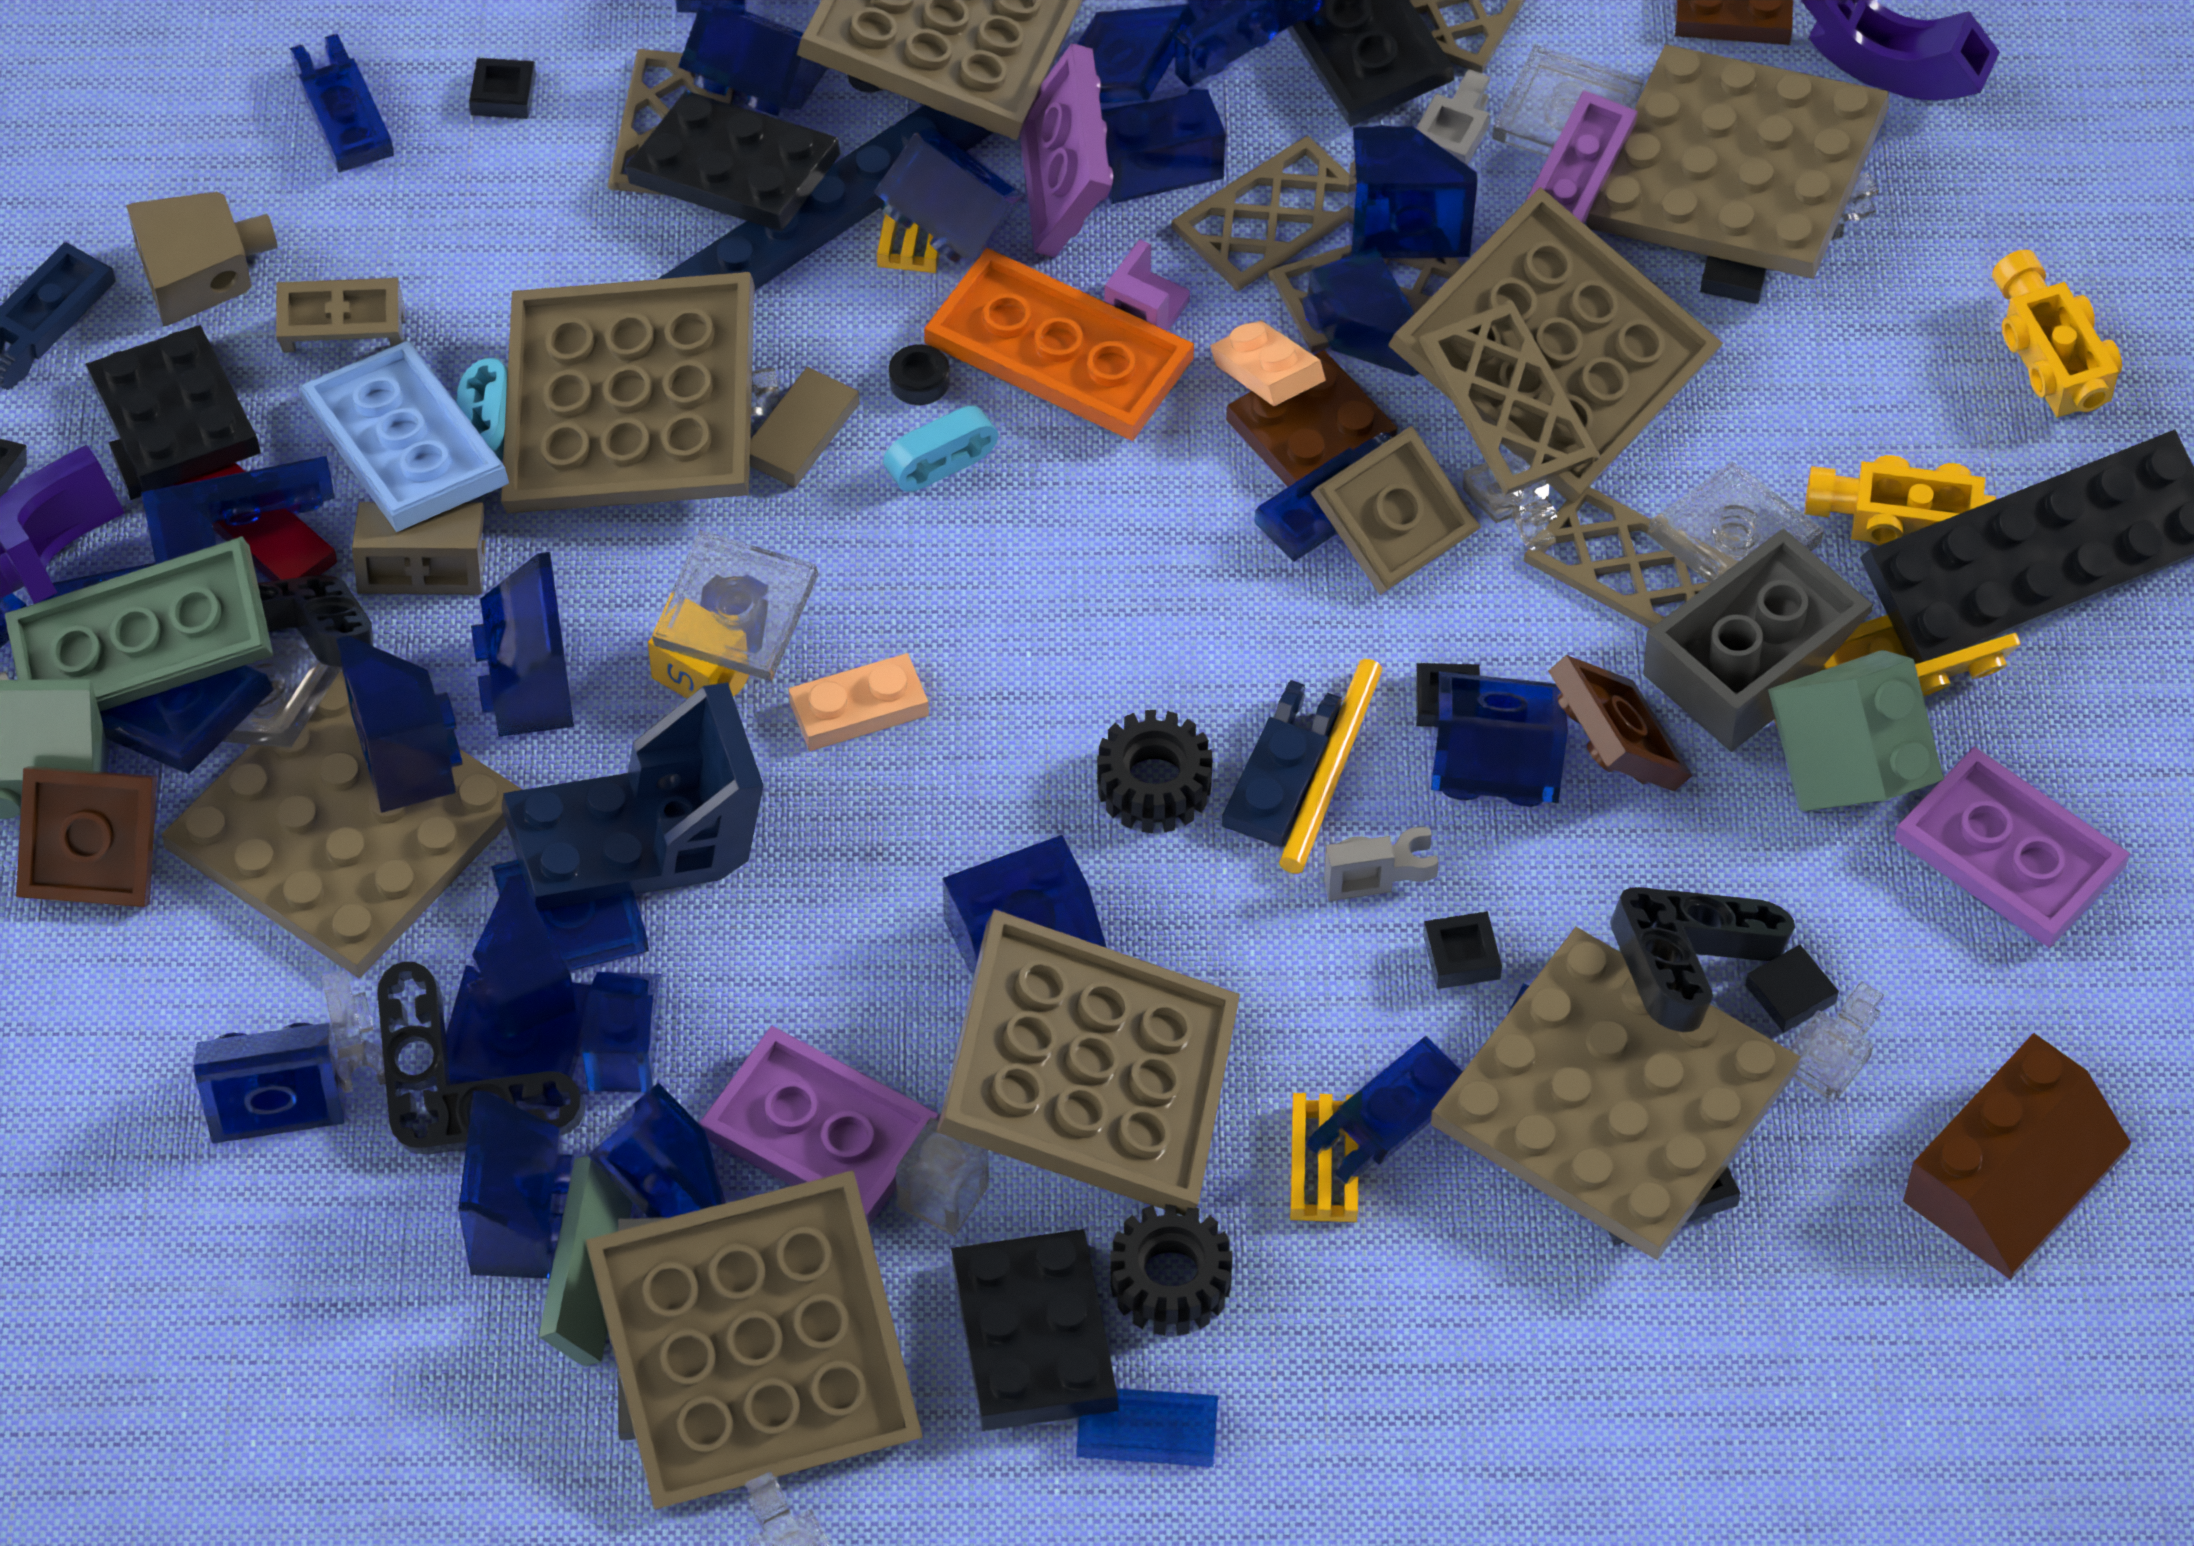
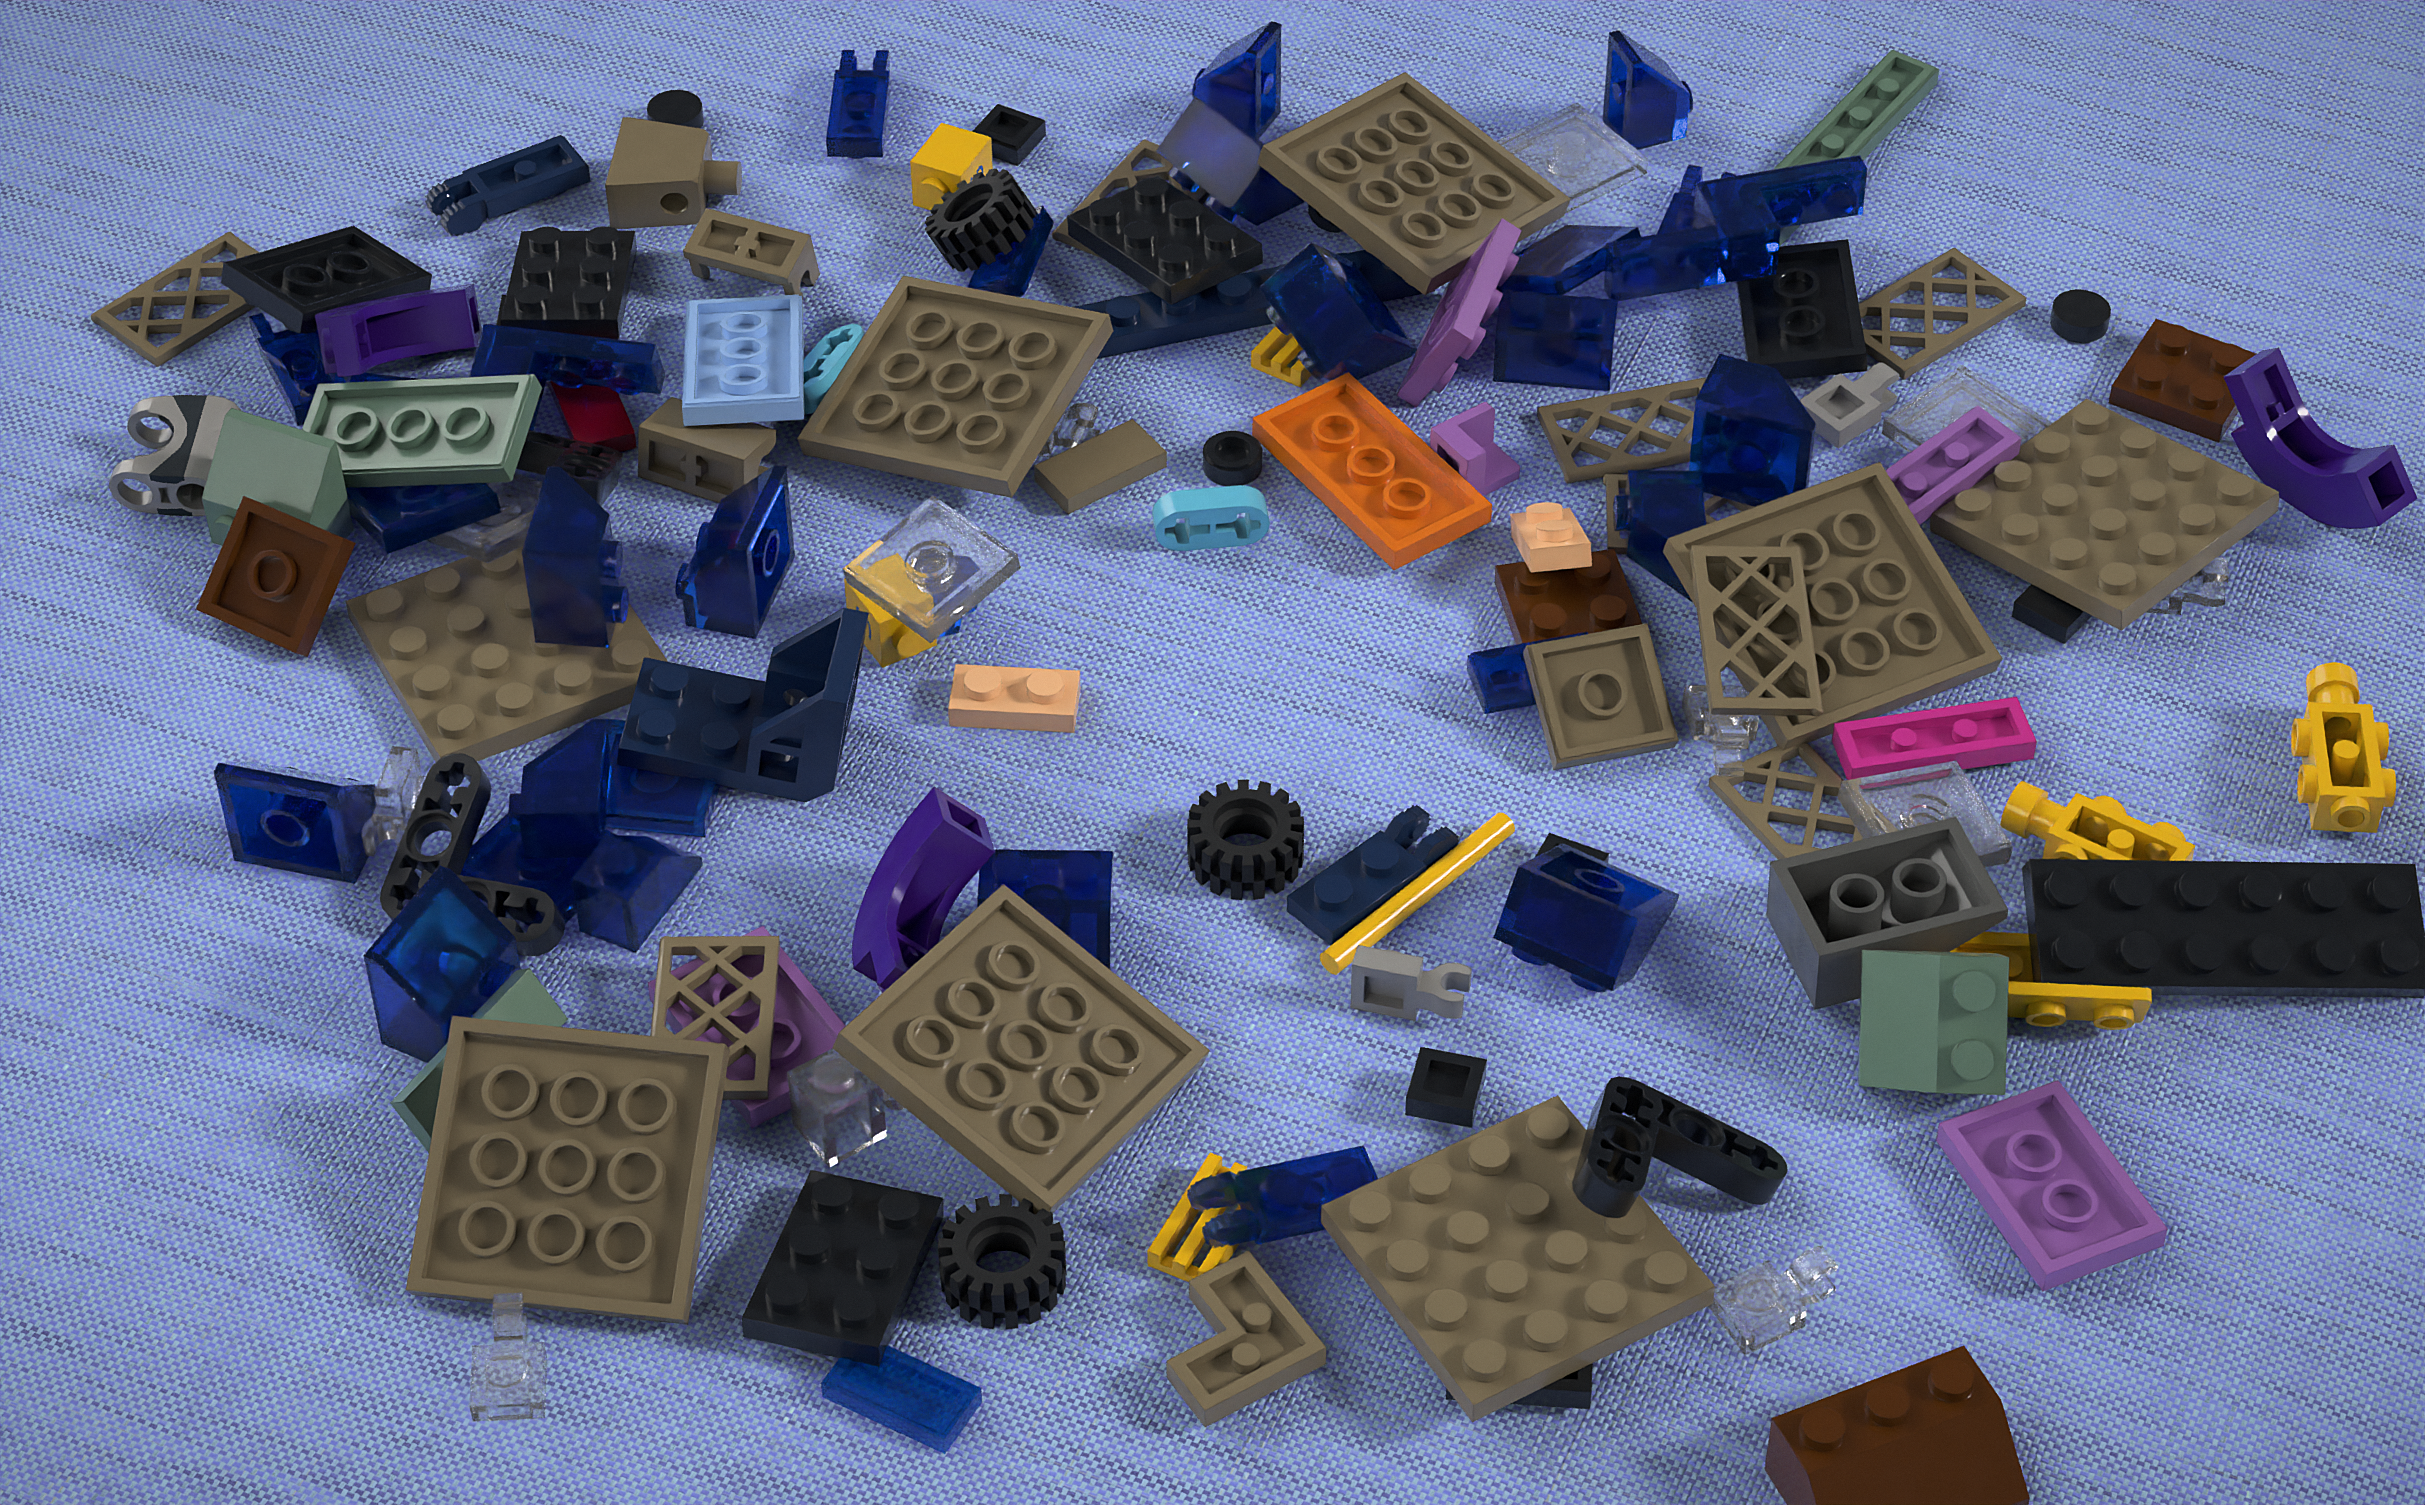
camera: 25 degrees right, 10 degrees down
(156, 174) = (676, 108): none -> black tile
(479, 151) = (945, 161): none -> yellow brick
(563, 216) = (980, 220): none -> black tyre
(591, 228) = (1013, 271): none -> clear blue plate
(660, 1157) = (589, 983): clear blue slope -> none
(810, 1092) = (718, 954): none -> dark tan window
(896, 946) = (917, 886): none -> dark purple arch
(1434, 1255) = (1257, 1342): none -> dark tan plate
(1618, 723) = (1706, 939): reddish brown plate -> none
(1701, 446) = (1964, 733): none -> dark pink plate
(1791, 988) = (1755, 1233): black tile -> none

